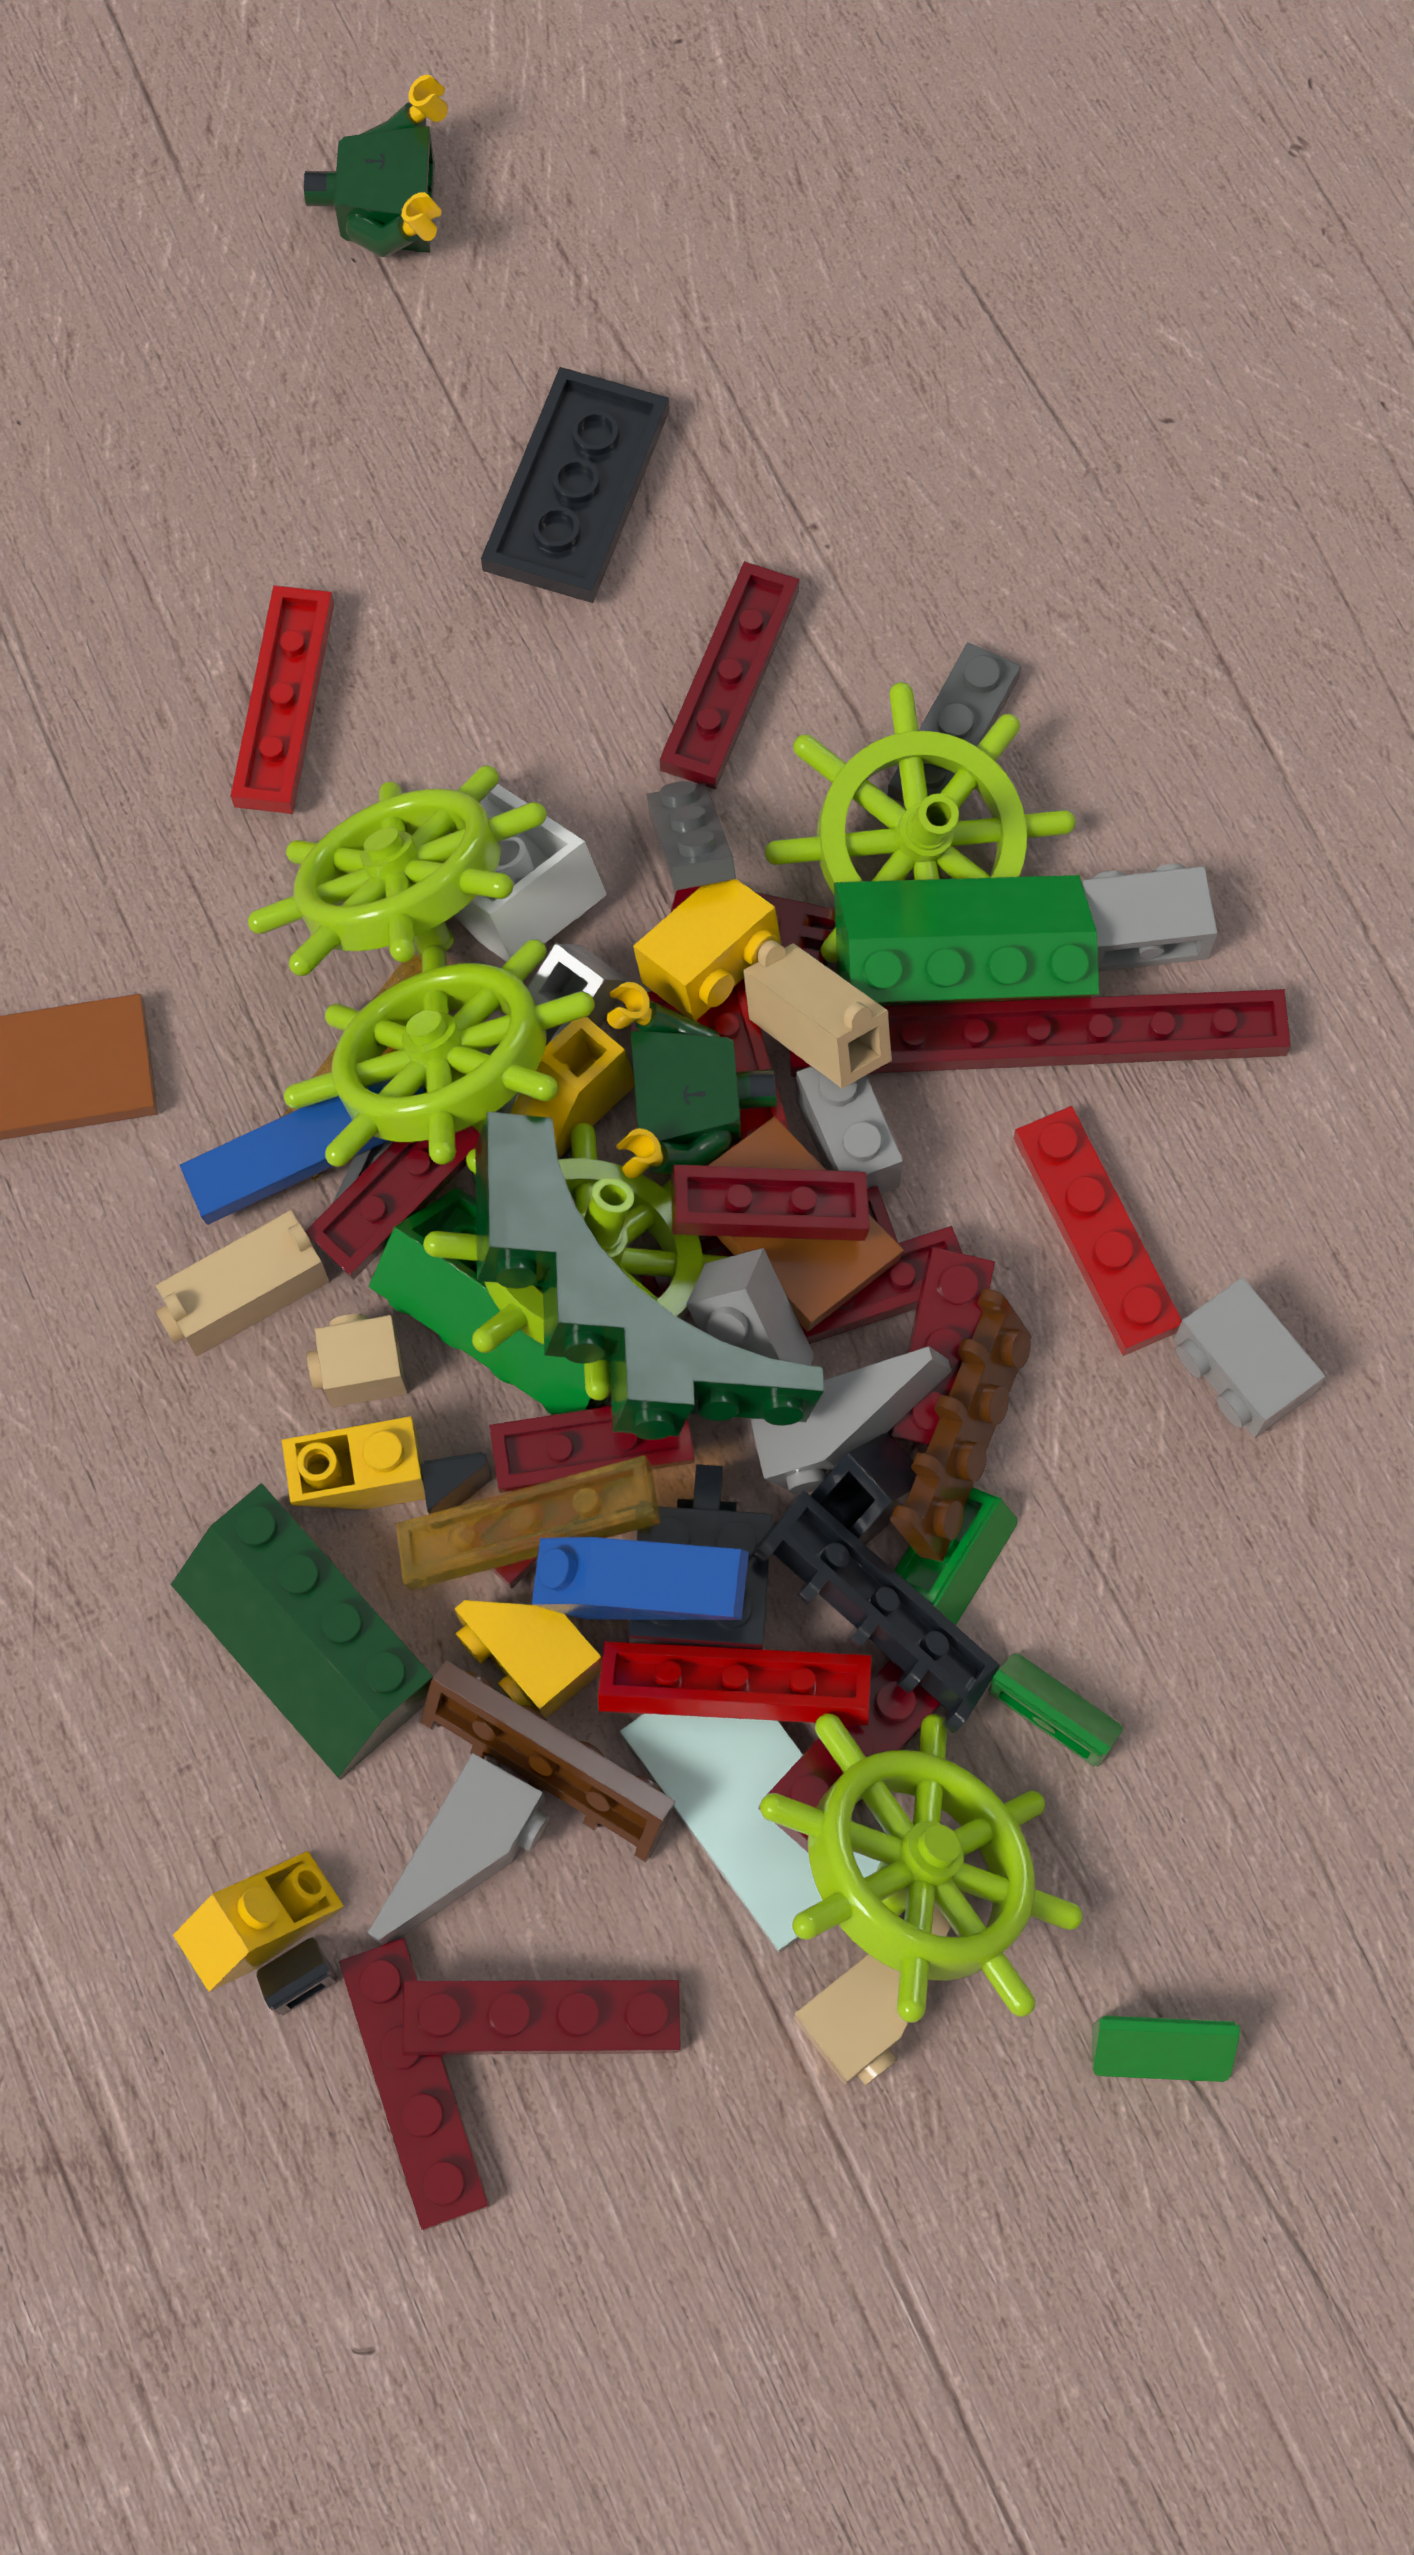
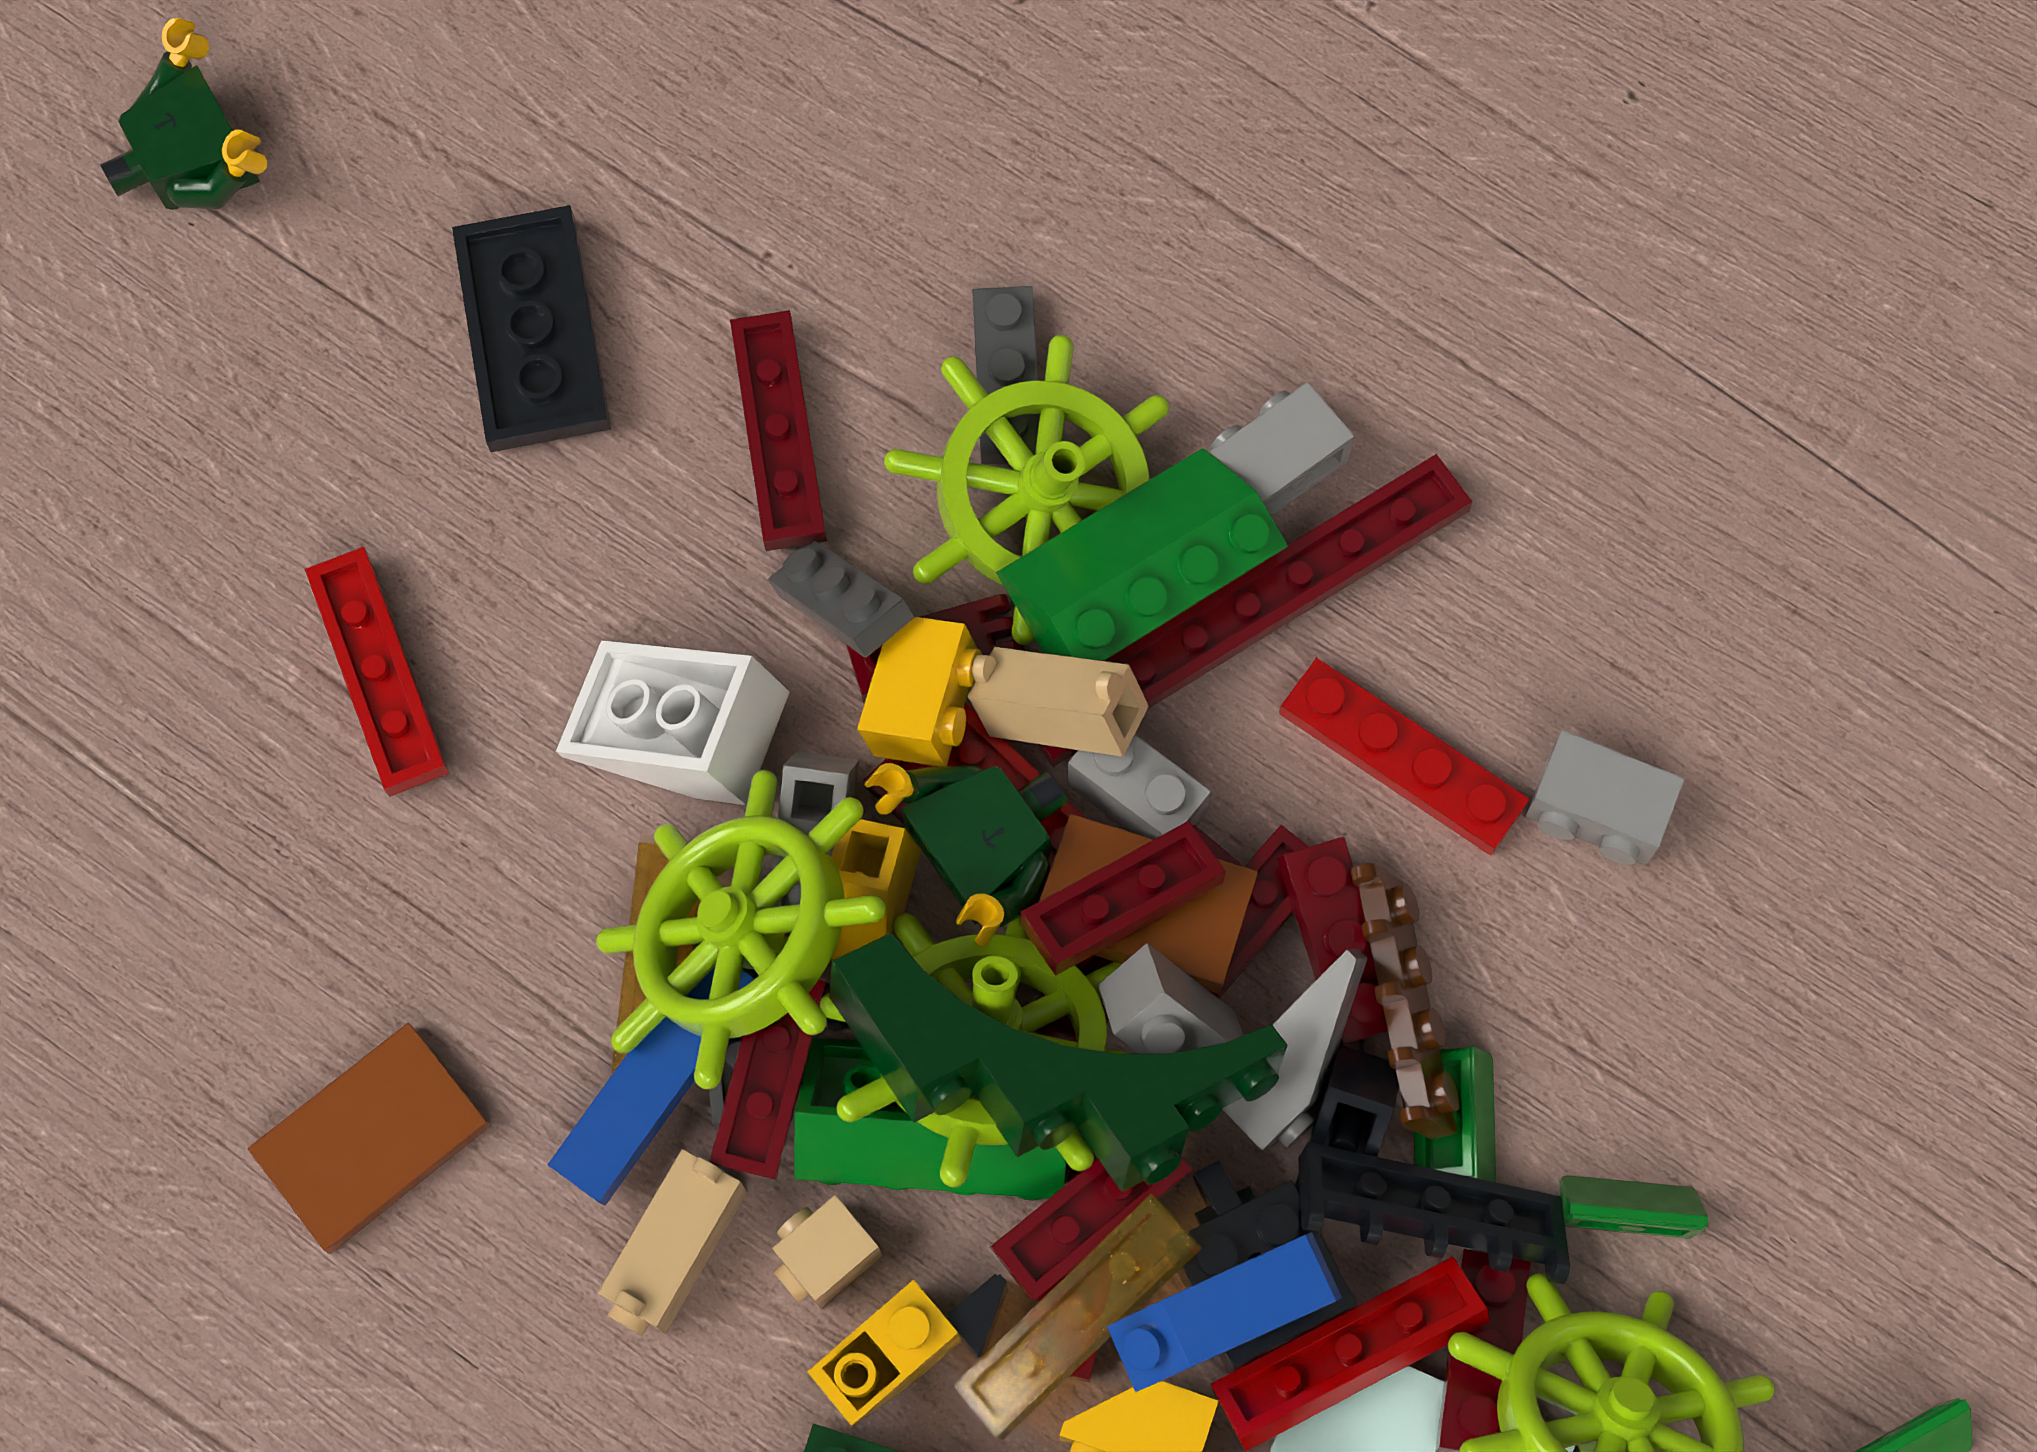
camera: 30 degrees left, 0 degrees up
(397, 871) = (594, 777): lime piece -> none

